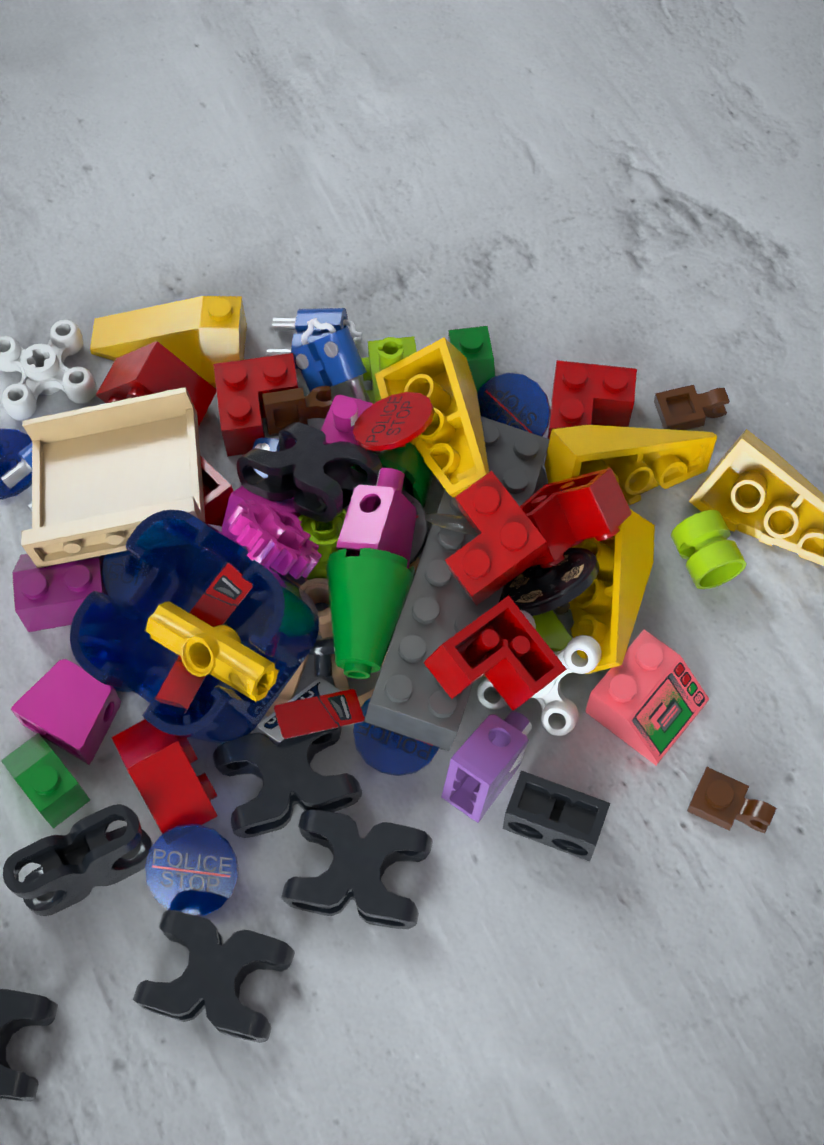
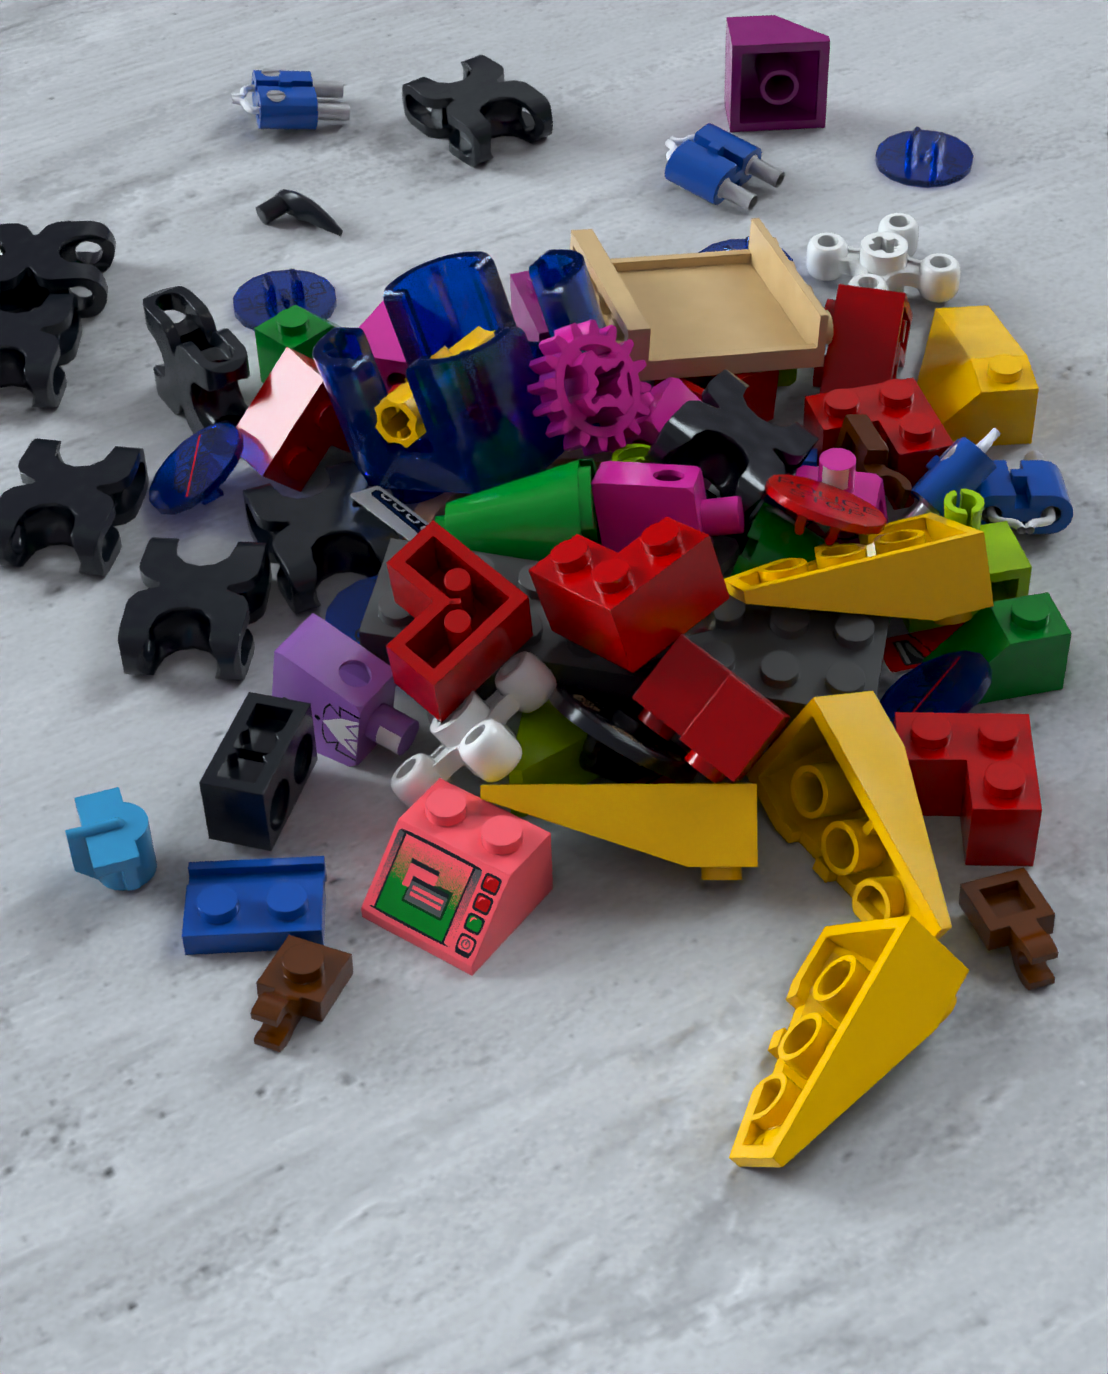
camera: 85 degrees right, 20 degrees down
(318, 713) = (386, 514): red sticker -> none
(615, 916) = (112, 841): none -> dark azure piece
(652, 830) = (253, 904): none -> blue plate
(708, 553) = (717, 941): lime wheel -> none

